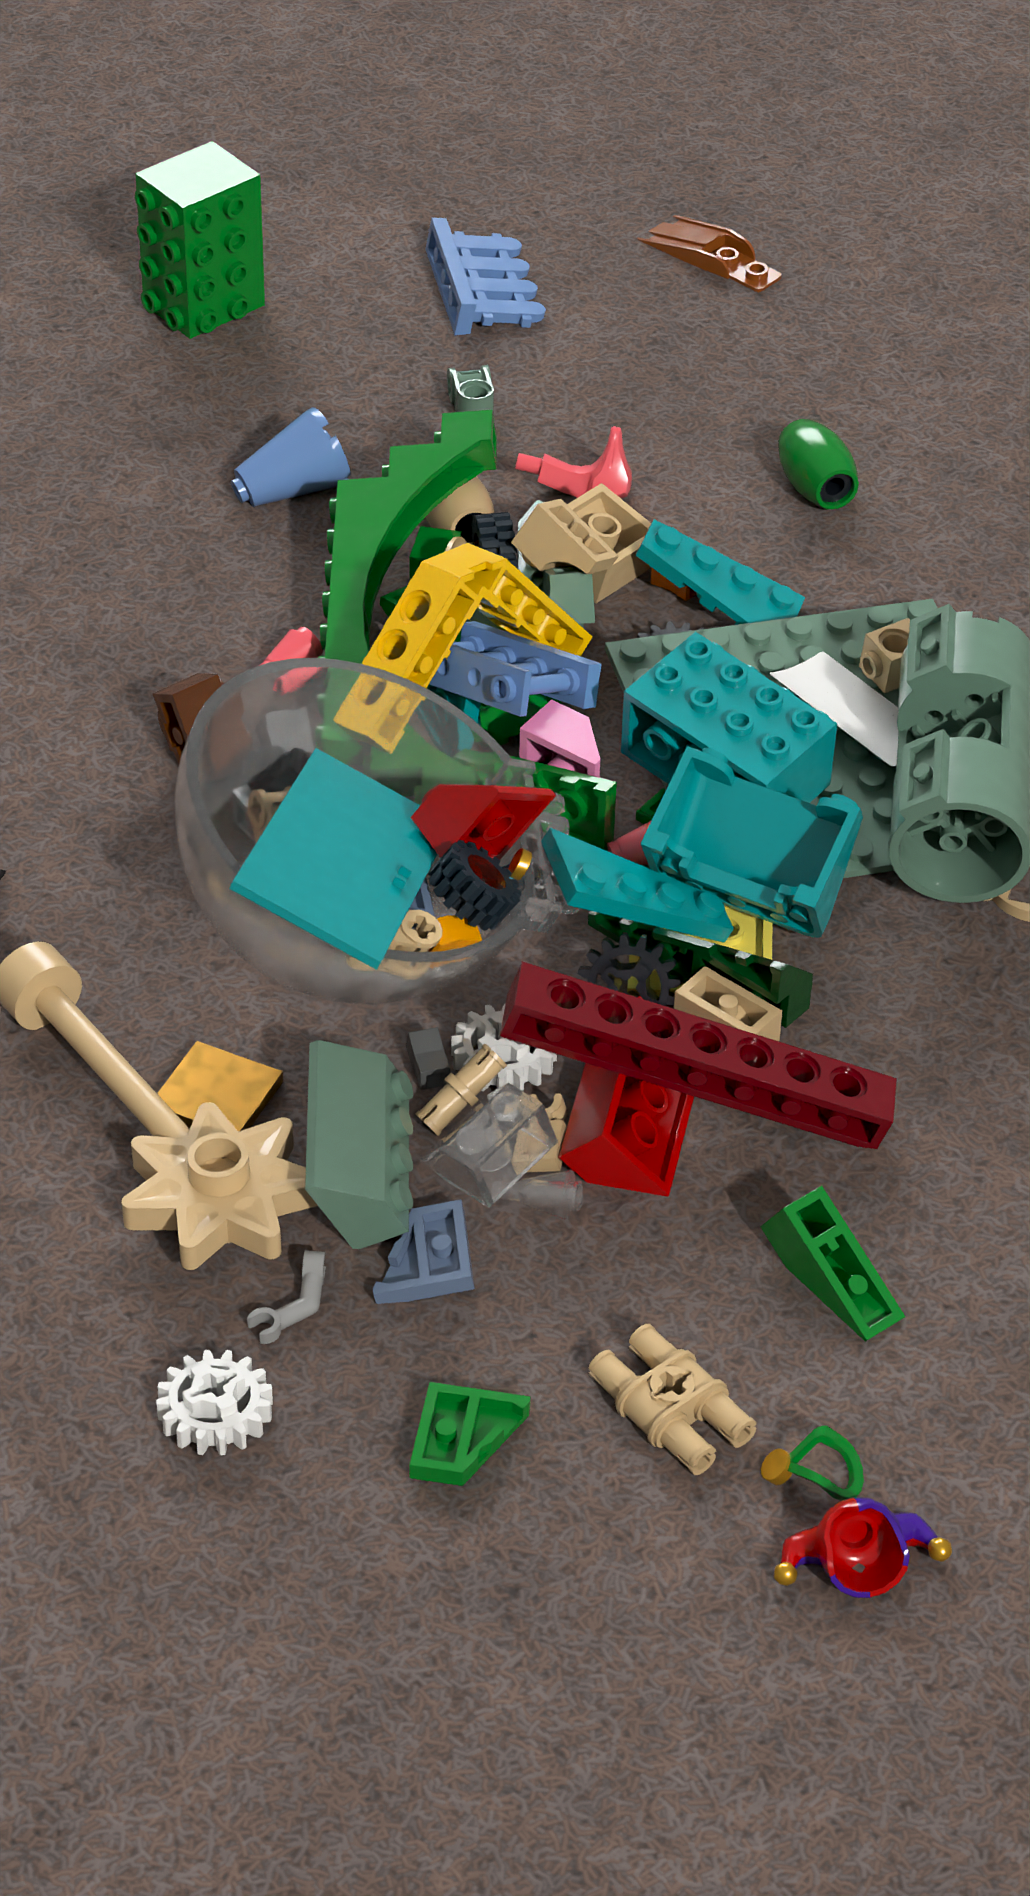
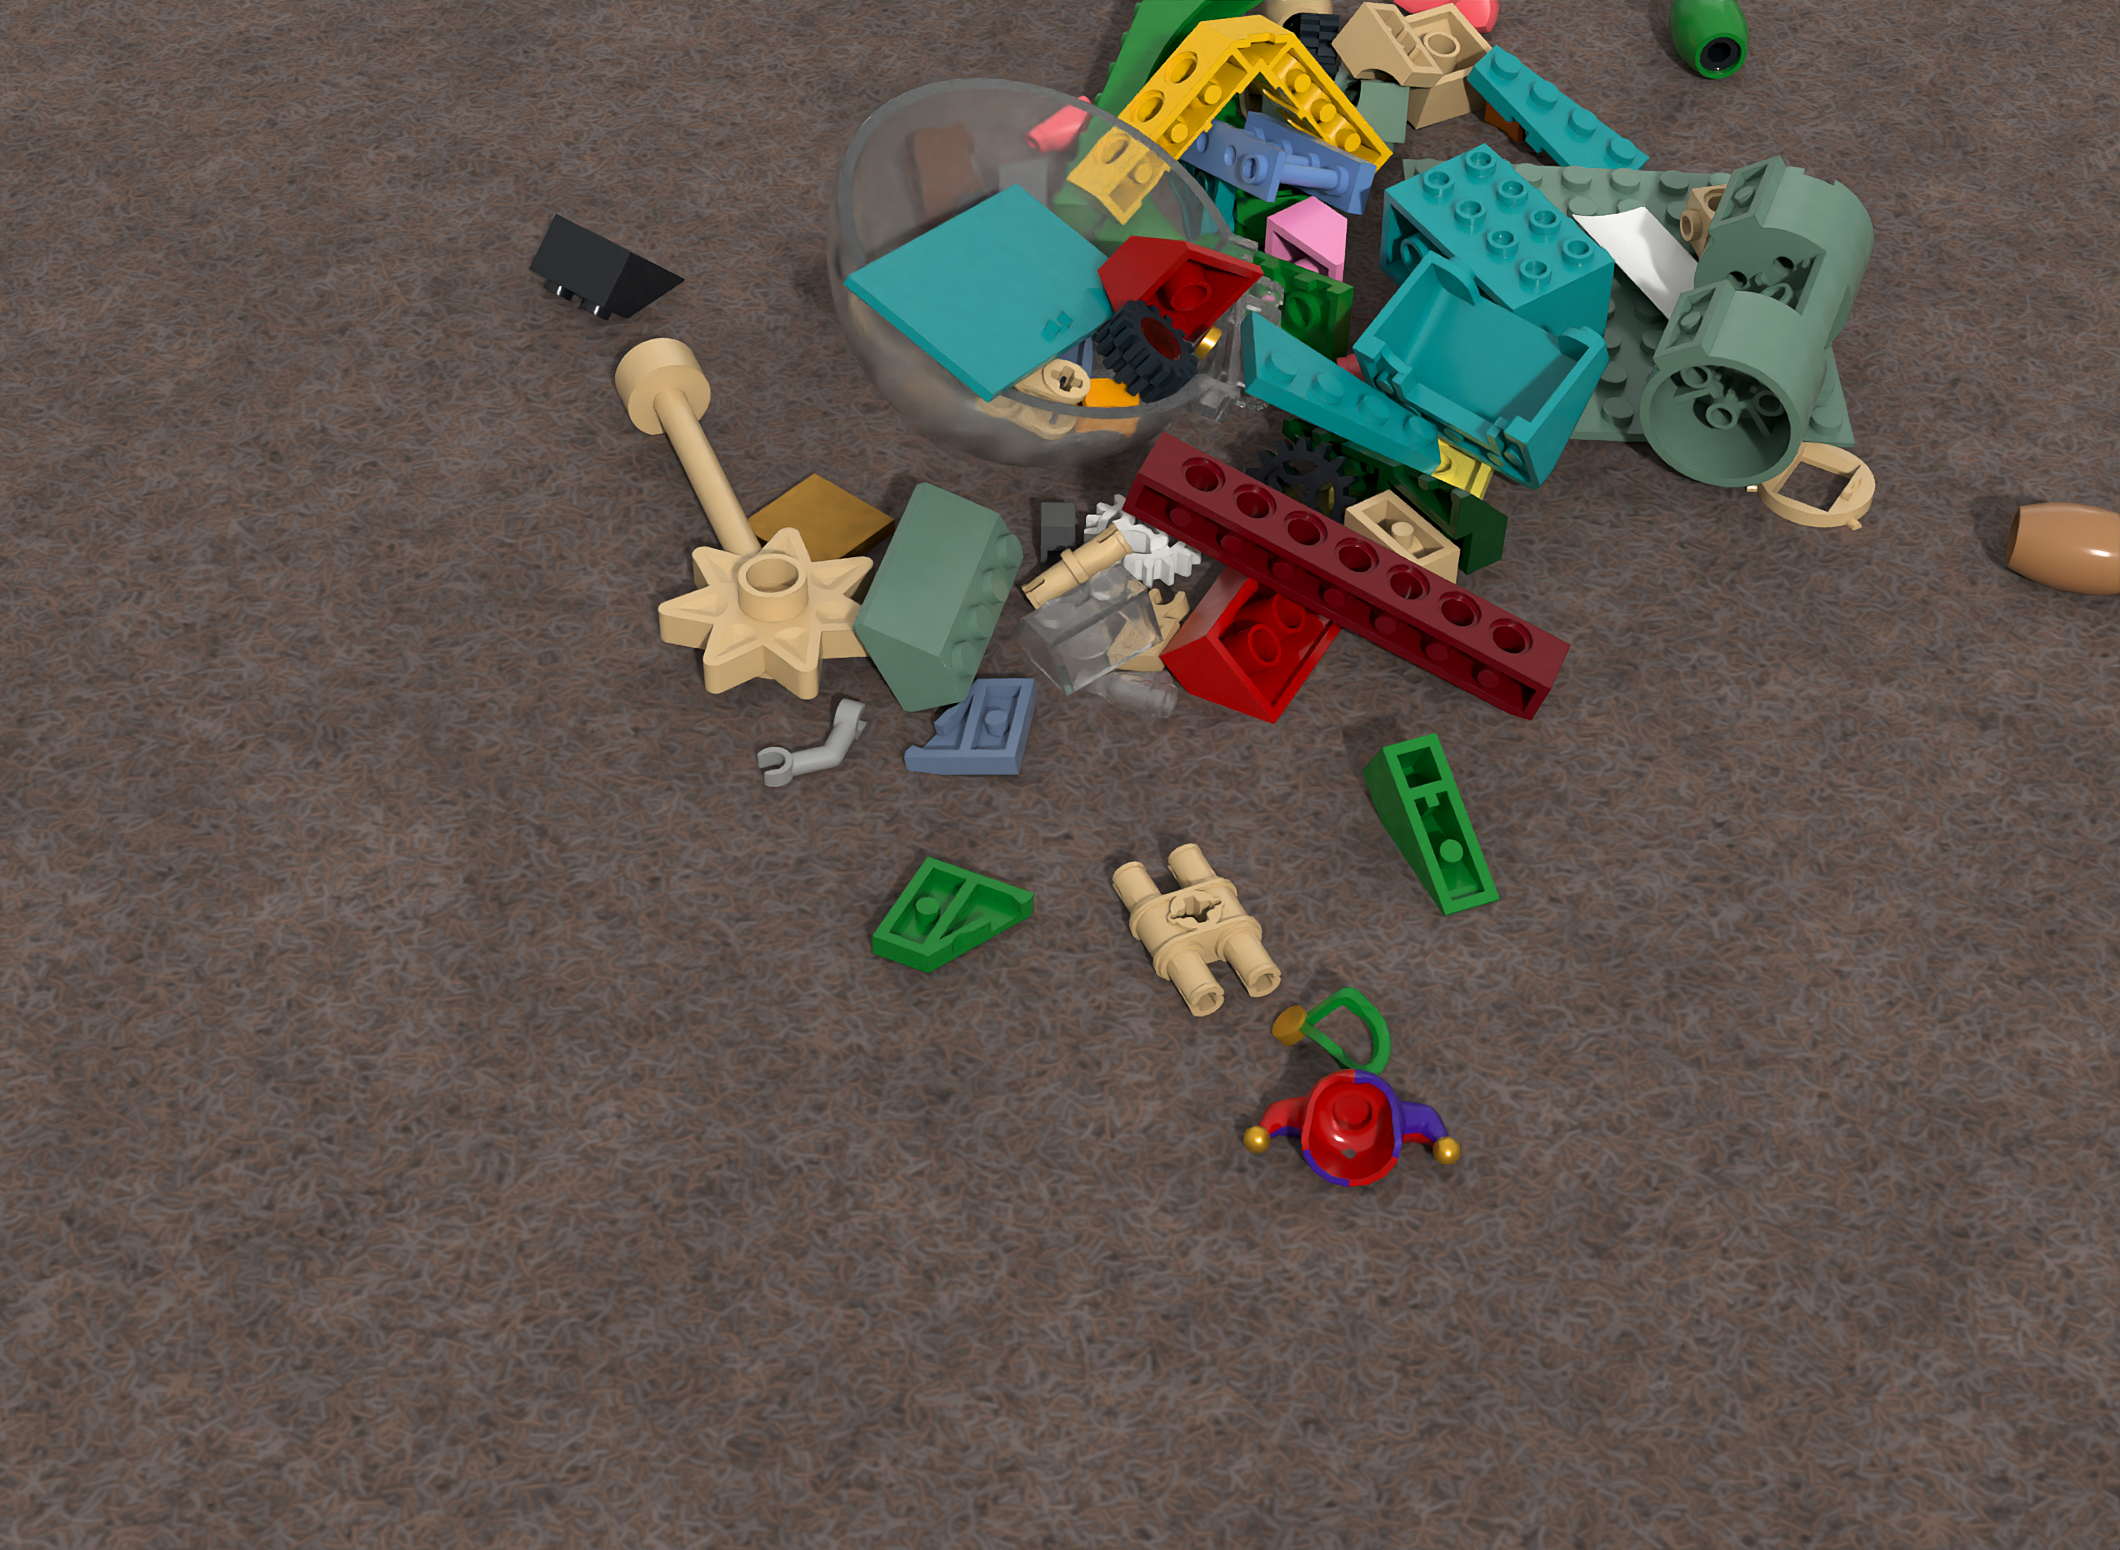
camera: 15 degrees right, 0 degrees up
(212, 1402) = (686, 831): white gear -> none

